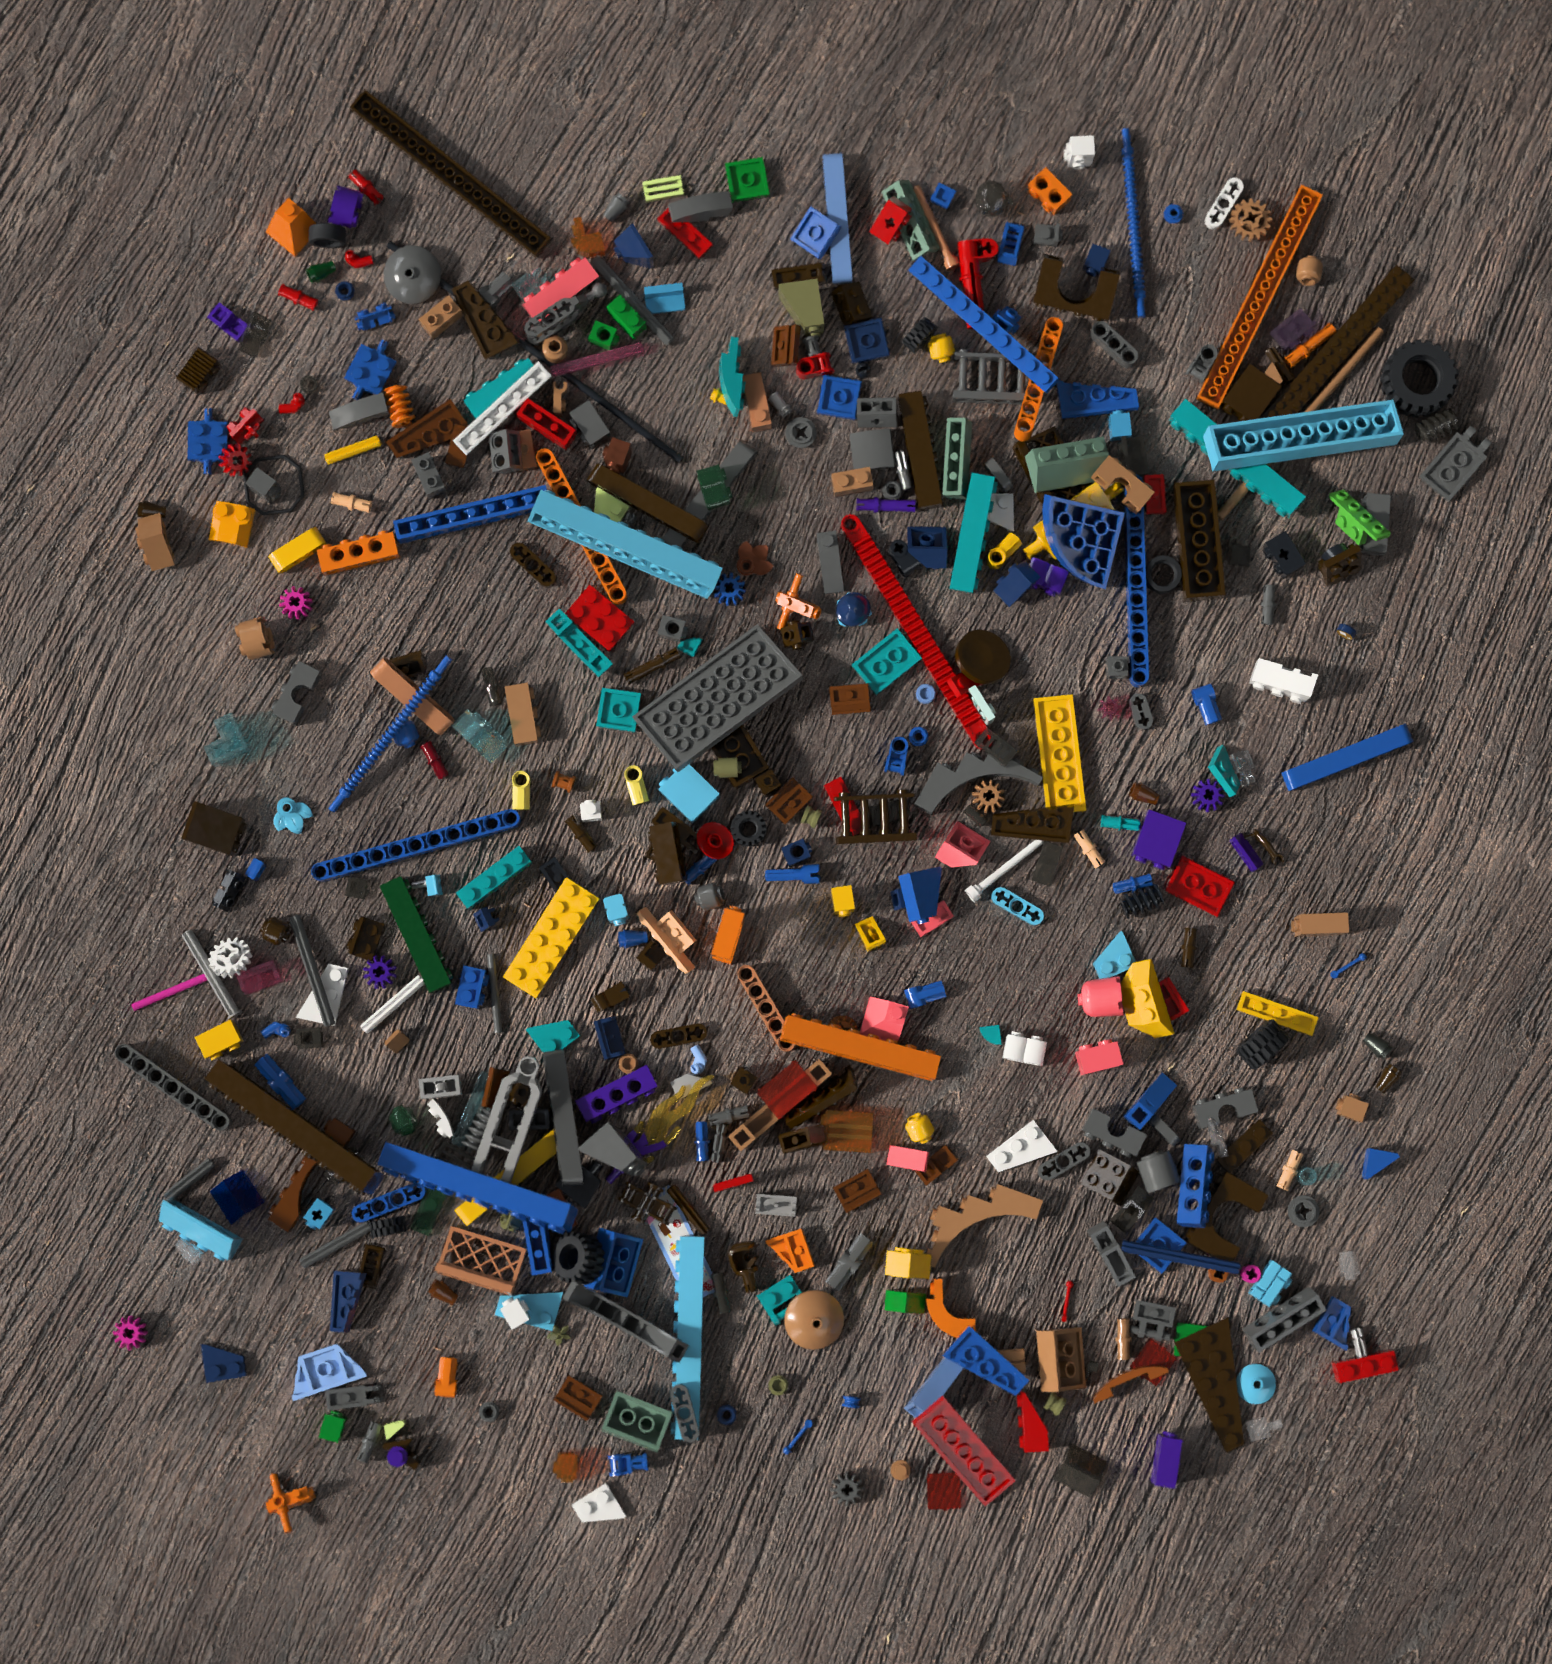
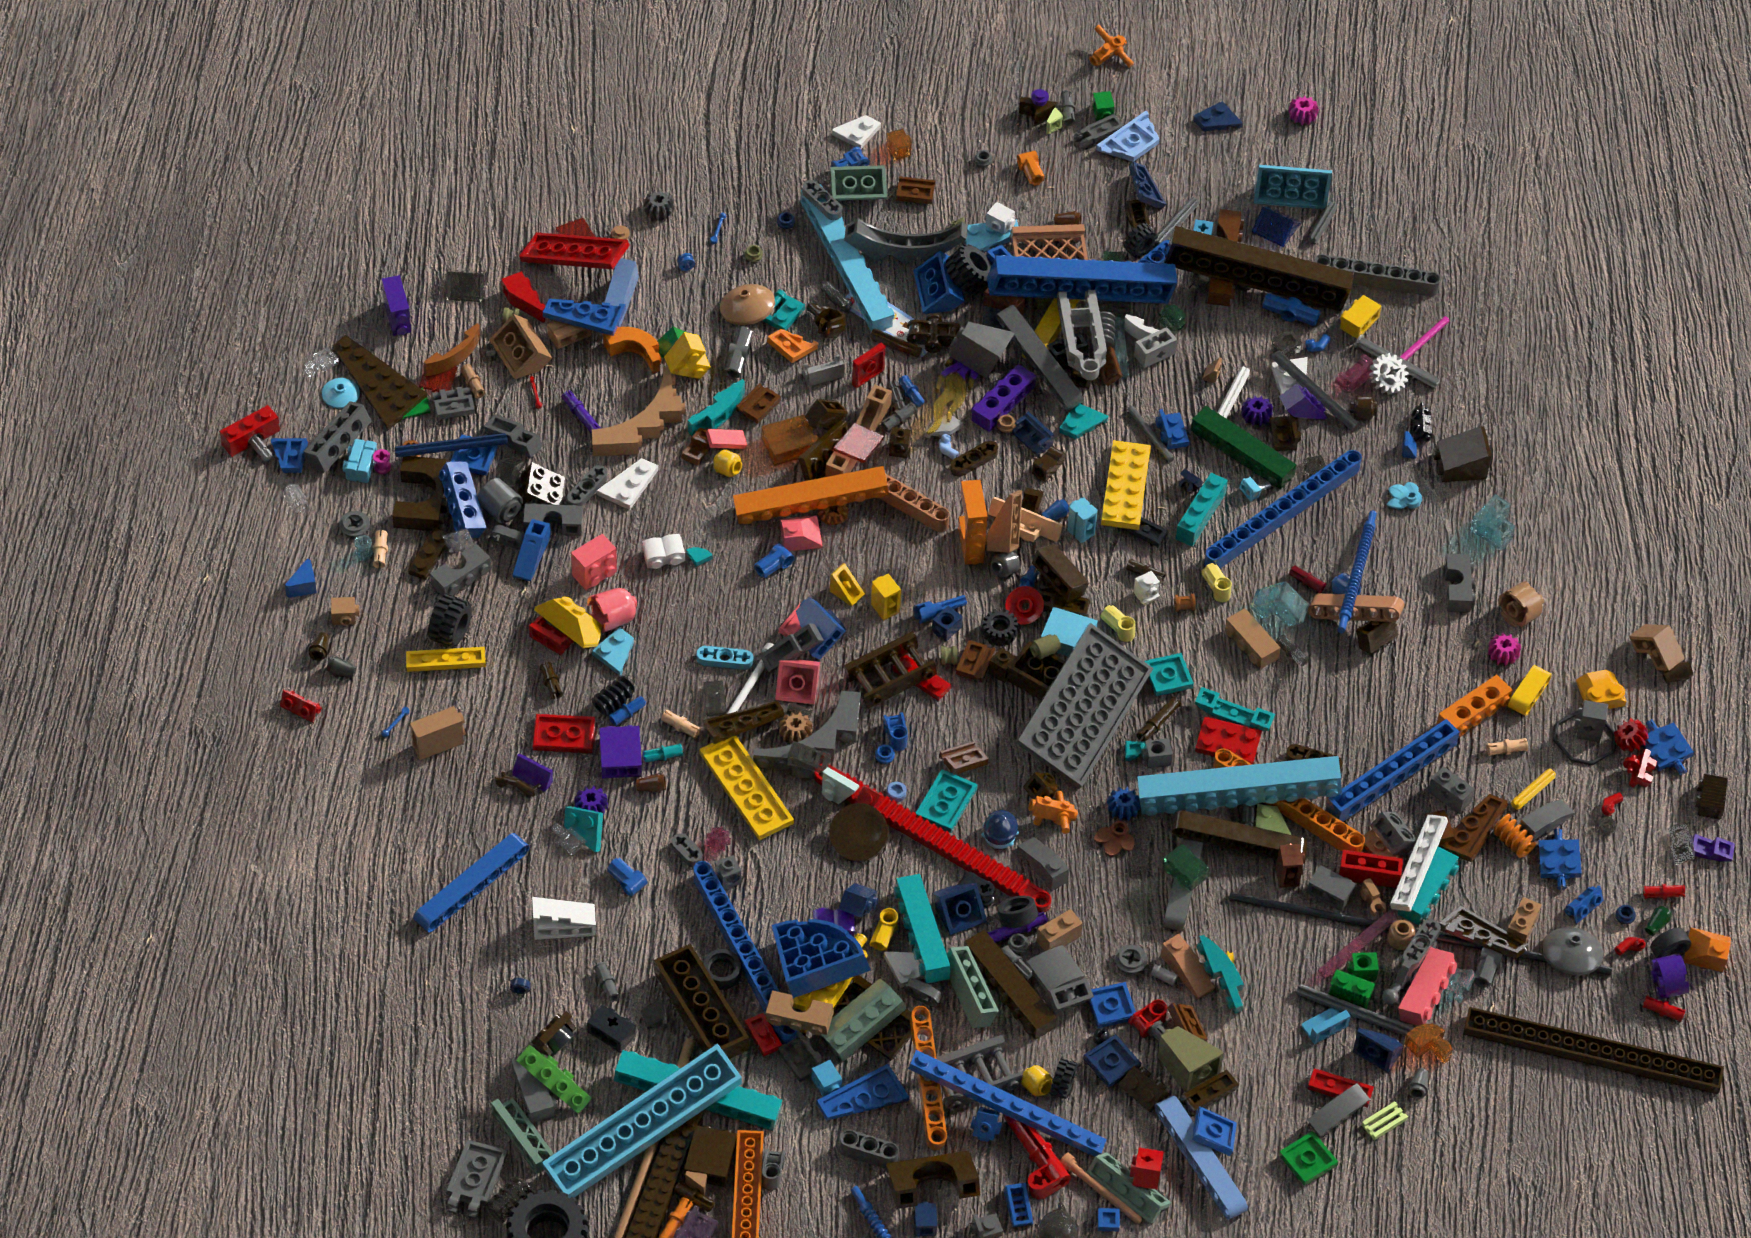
camera: 155 degrees right, 30 degrees down
(336, 949) = (1302, 404): none -> dark purple slope
(697, 922) = (1005, 530): none -> medium nougat slope
(880, 500) = (1017, 911): none -> black tyre
(891, 1202) = (722, 409): none -> teal slope
(956, 877) = (792, 646): none -> dark grey slope
(1033, 1252) = (577, 408): none -> dark purple pin
(1406, 485) = (518, 1137): none -> sand green fence
(1434, 1025) = (299, 706): none -> red hinge

